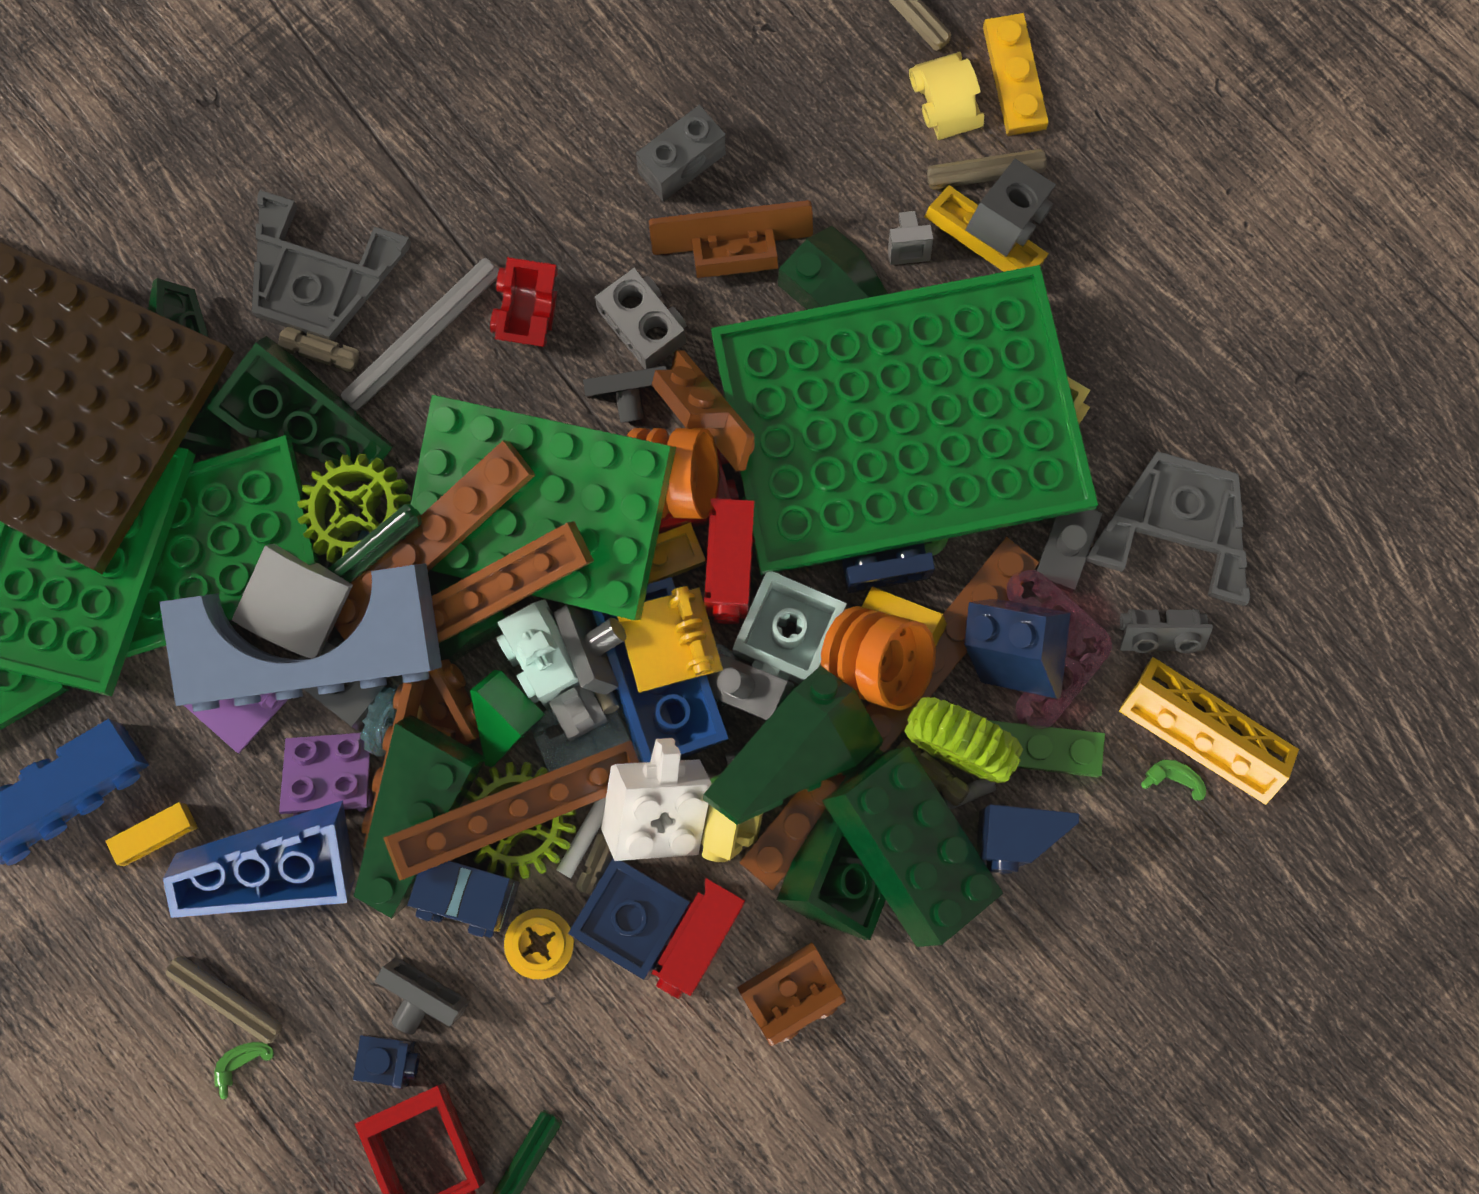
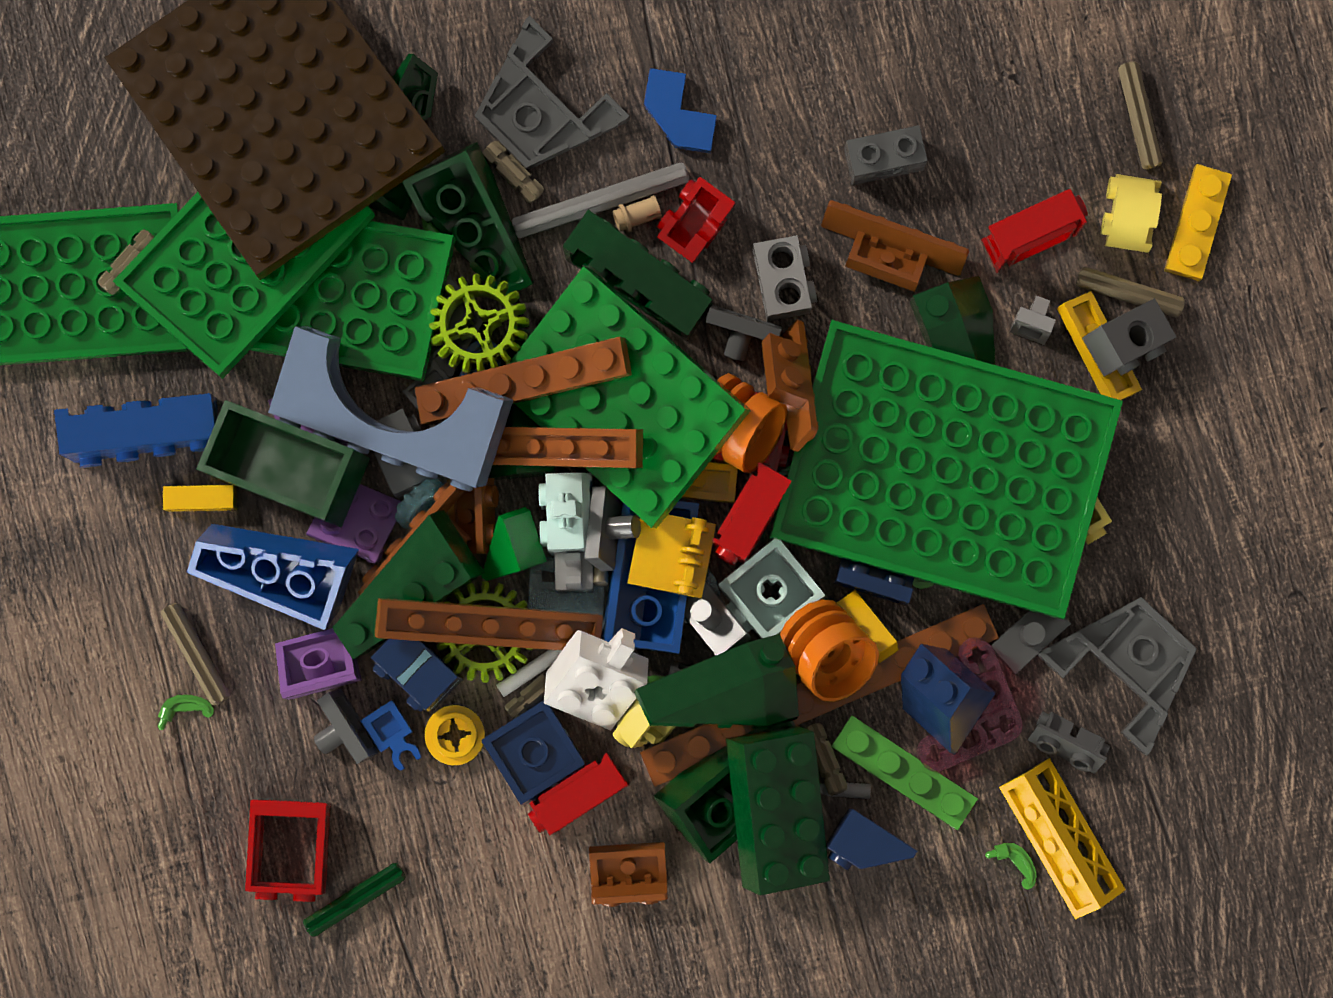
camera: 30 degrees right, 5 degrees up
(218, 751) = (283, 463): none -> dark green piece
(291, 602) = (395, 376): light grey slope -> none
(356, 946) = (314, 664): none -> medium lavender slope
(377, 543) = (475, 366): dark green axle -> none
(386, 1061) = (295, 764): dark blue bracket -> none
(463, 329) = (636, 214): none -> tan pin
(467, 226) = (682, 127): none -> blue tile
(467, 973) = (388, 730): none -> blue plate
(491, 381) = (638, 275): none -> dark green wedge
(864, 148) = (1035, 229): none -> red window
(964, 739) = (859, 748): lime gear -> none

